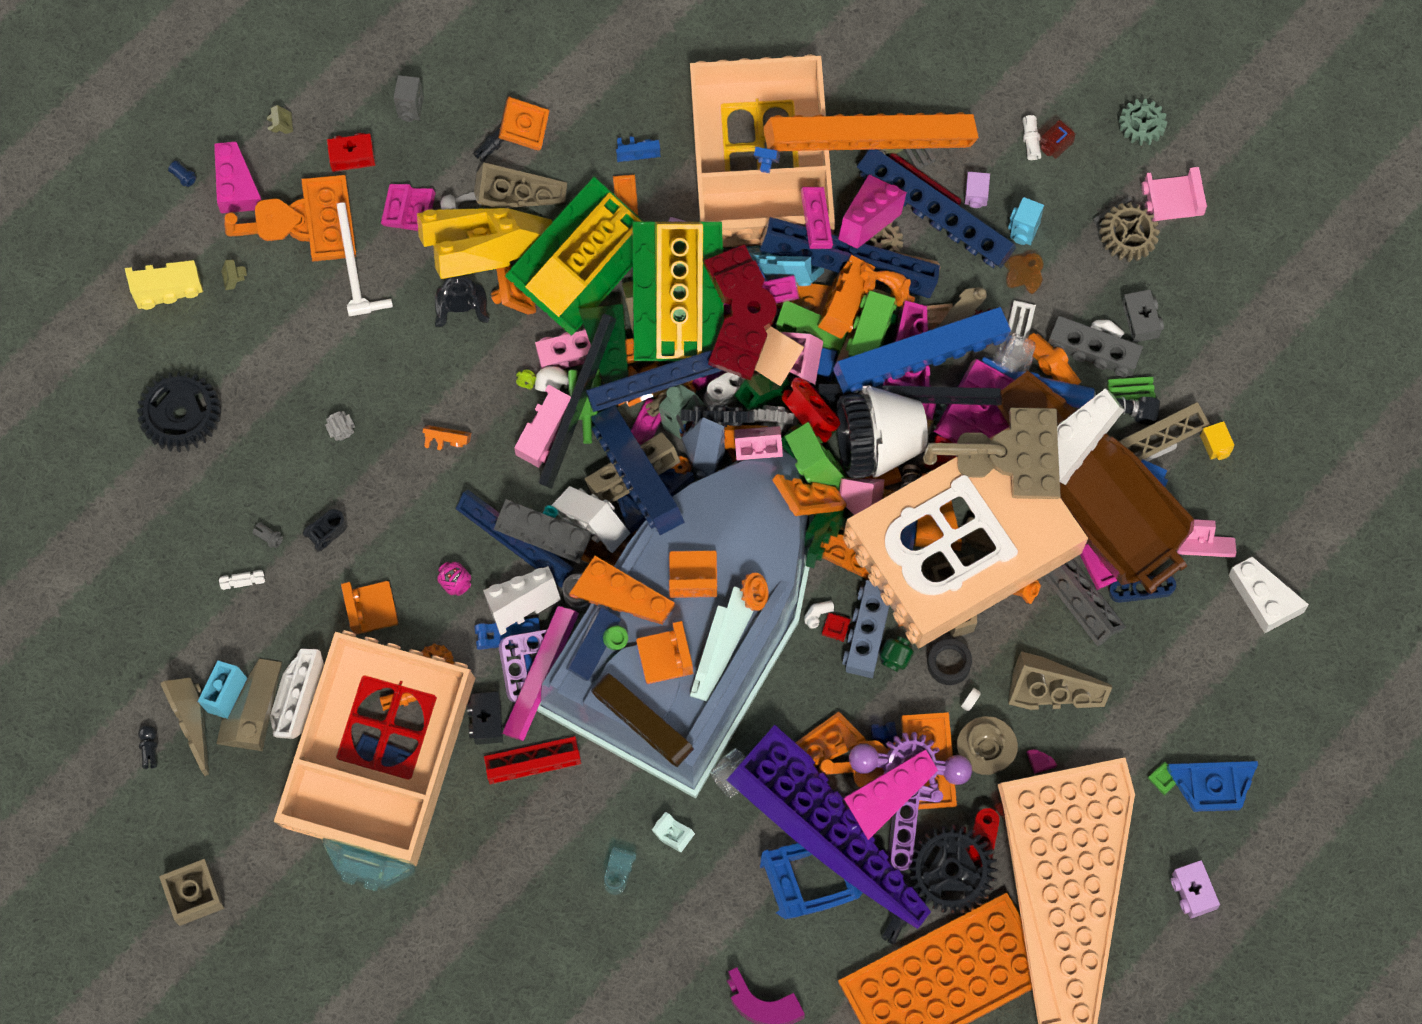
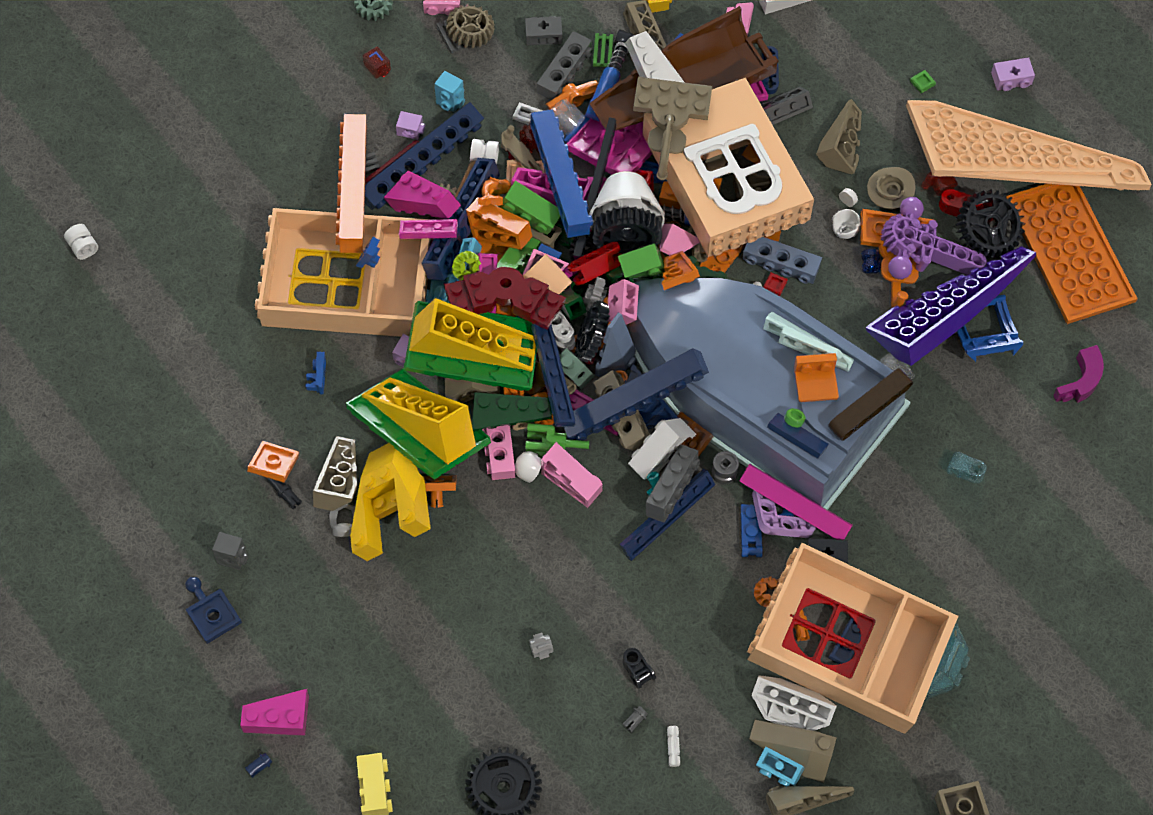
camera: 85 degrees left, 5 degrees down
(232, 274) = (373, 727): olive tile -> none
(281, 120) = (222, 668): olive tile -> none
(318, 214) = (332, 646): orange plate -> none
(343, 87) = (214, 602): none -> dark blue plate
(343, 159) = (272, 621): red brick -> none
(358, 304) = (423, 620): white bar -> none
(369, 607) = (714, 639): orange bracket -> none
(404, 204) = (334, 569): dark pink slope -> none
(454, 578) = (697, 566): dark pink head -> none
(455, 437) = (561, 563): orange plate -> none
(460, 296) = (434, 540): black hair -> none
(521, 596) = (726, 513): white wedge -> none
(526, 376) = (520, 489): lime plate -> none
(533, 765) = (873, 523): red fence -> none
(577, 401) = (553, 437): black tile -> none
(615, 589) = (753, 411): orange wing -> none
(626, 191) = (351, 389): orange tile -> none
(672, 832) = (939, 423): light aqua bracket -> none
(693, 574) = (748, 350): orange bracket -> none
(757, 585) = (768, 307): orange gear -> none
(777, 261) = (458, 265): none -> lime gear
(830, 739) = (872, 296): orange wing -> none
(885, 795) = (932, 254): dark pink wing -> none
(894, 927) = (1028, 278): black pin -> none
(896, 653) = (805, 241): dark green head -> none
(934, 693) = (847, 220): none -> white hair
(945, 678) = (817, 220): black tyre -> none
(954, 272) = (487, 150): none -> white wheel
(1022, 274) = (491, 106): clear orange plate -> none
(1031, 137) = (369, 81): white pin -> none
(1040, 761) = (902, 160): dark pink tile -> none
(1107, 326) = (547, 55): white arm -> none
(1214, 785) = (933, 49): blue wing -> none

